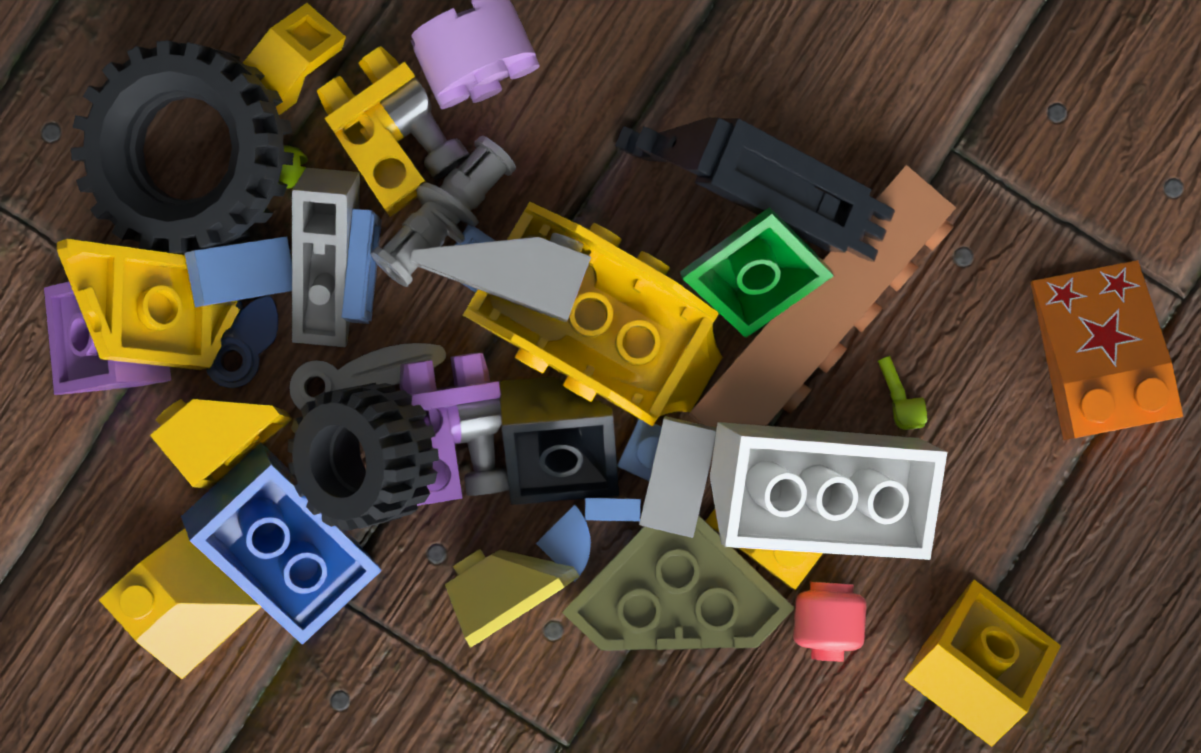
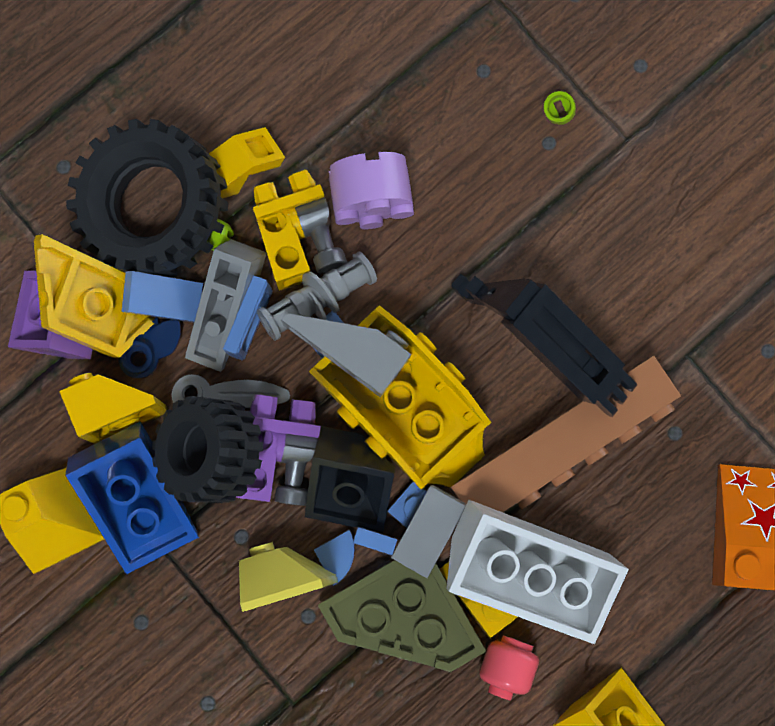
camera: 15 degrees right, 5 degrees down
(757, 273) = (527, 400): green slope -> none
(906, 412) = (605, 533): lime hand -> none

